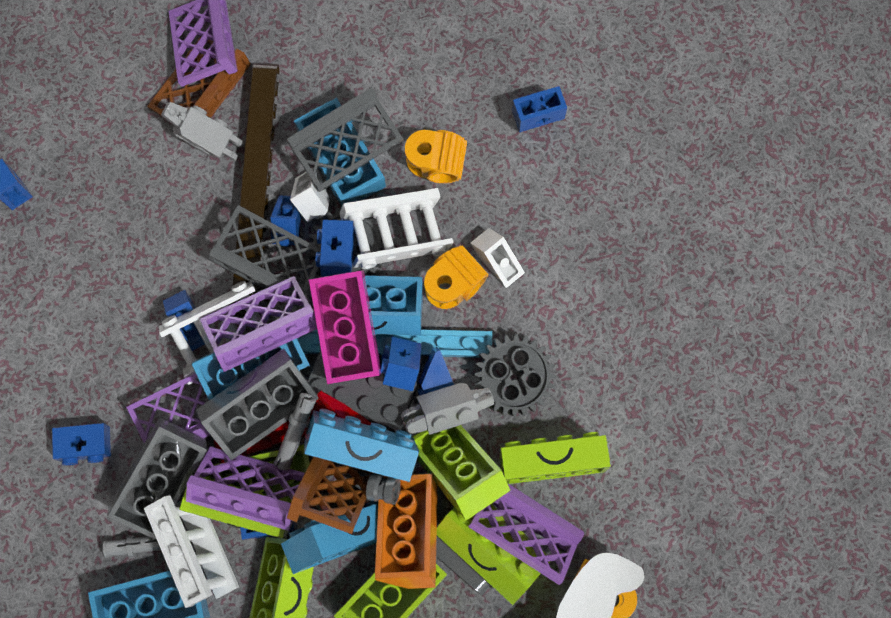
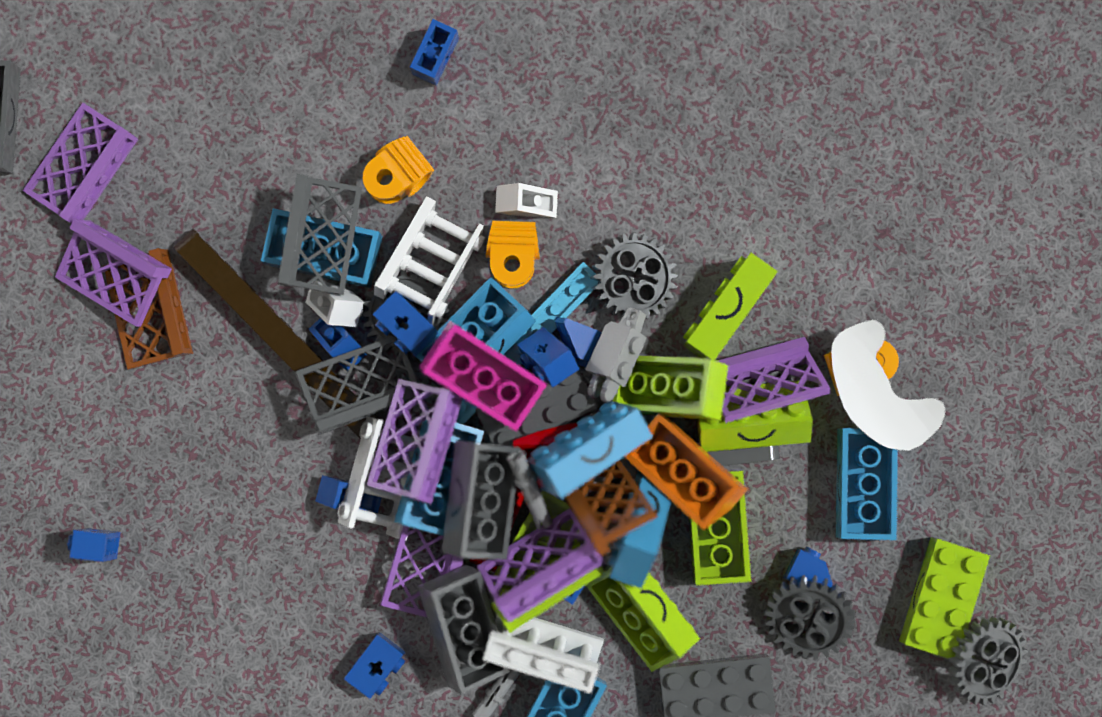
camera: 45 degrees left, 10 degrees up
(201, 131) = (198, 344): light grey hinge -> none
(383, 489) = (638, 462): dark grey wheel -> none

